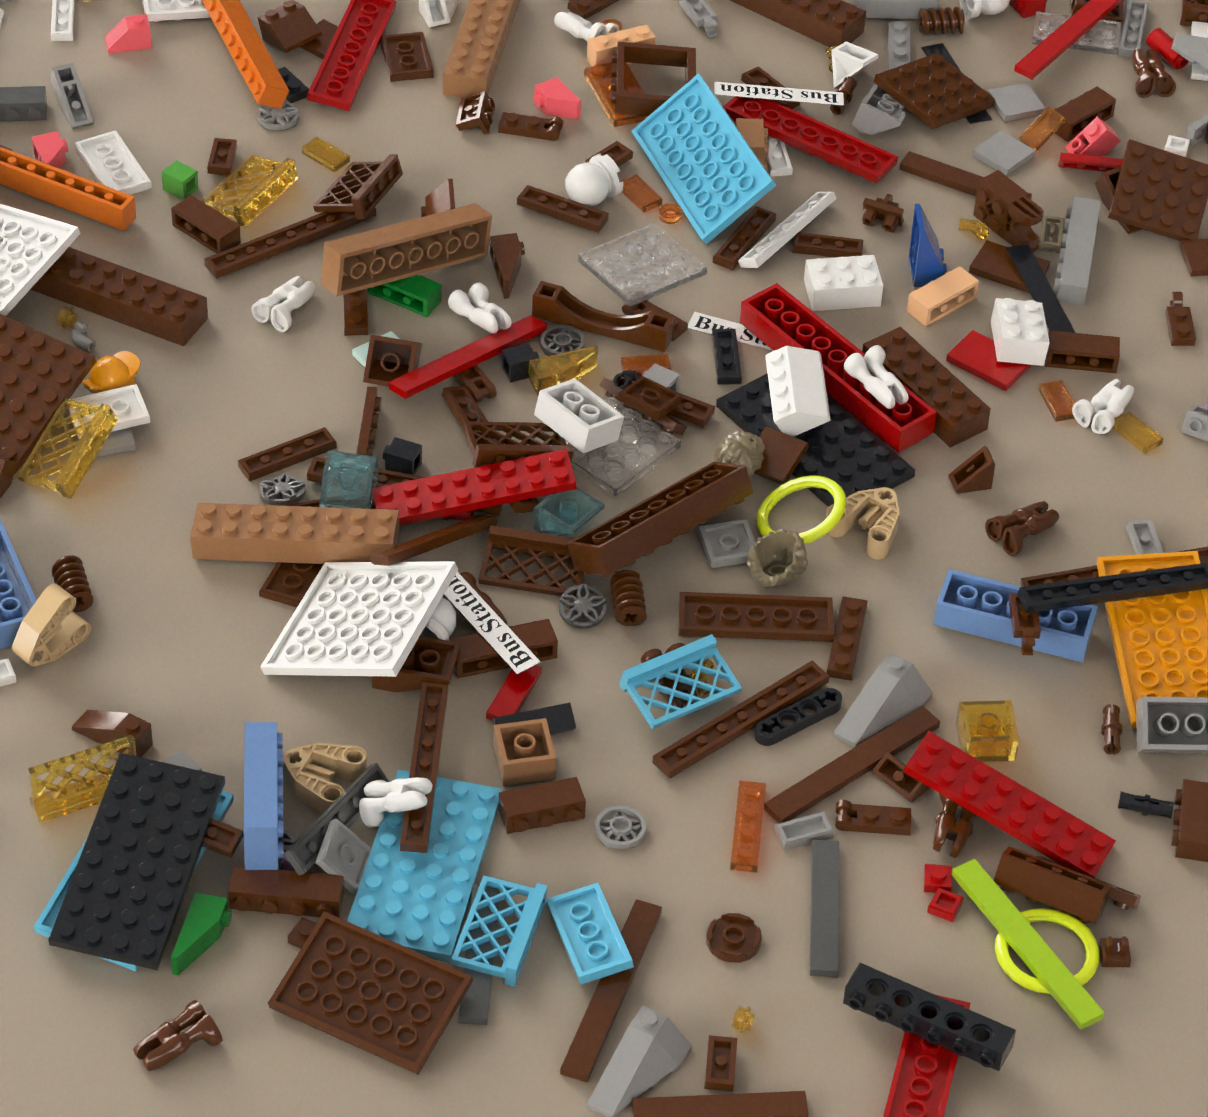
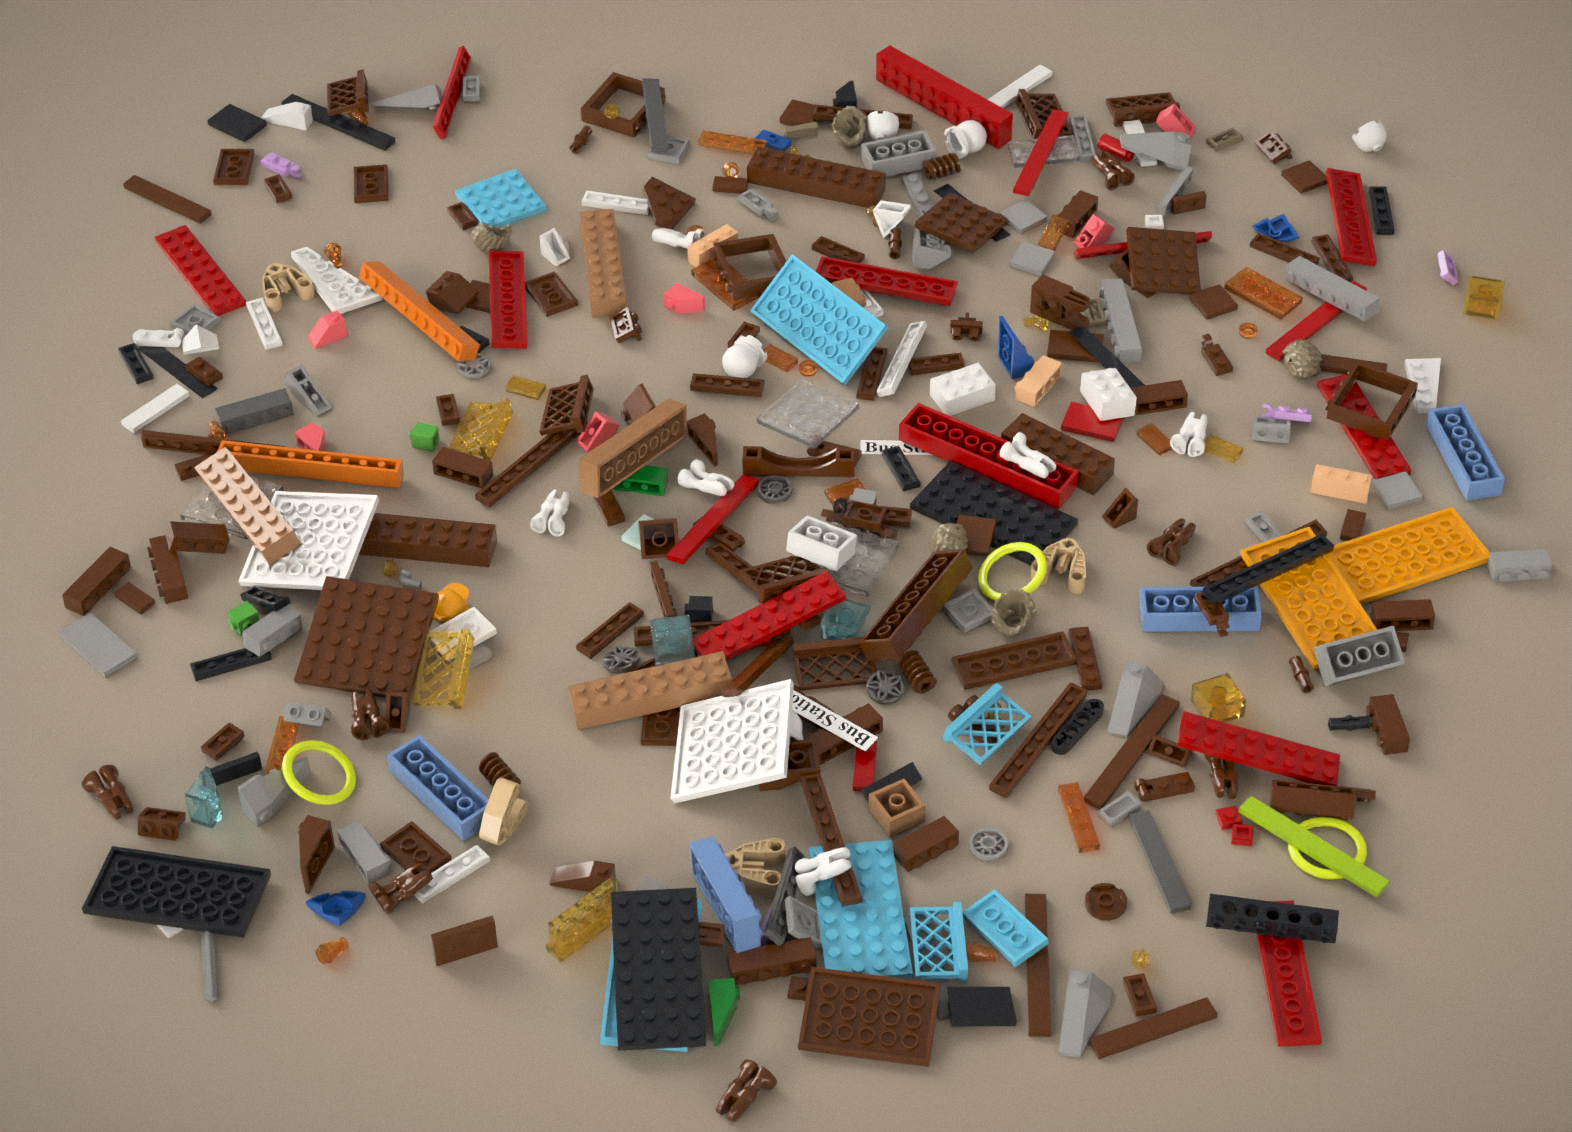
camera: 15 degrees left, 0 degrees up
(113, 163) = (364, 436): white tile -> none
(383, 215) = (597, 431): none -> coral slope
(515, 1020) = (980, 1006): none -> black tile
(516, 361) = (752, 513): black brick -> none
(530, 126) = (672, 326): reddish brown plate -> none
(545, 955) = (980, 953): none -> clear orange cone
(561, 367) = (783, 513): clear yellow slope -> none
(778, 93) = (851, 253): white sticker -> none
(797, 389) = (972, 480): white slope -> none
(941, 173) = (996, 286): reddish brown tile -> none
(1115, 952) = (1374, 835): reddish brown tile -> none

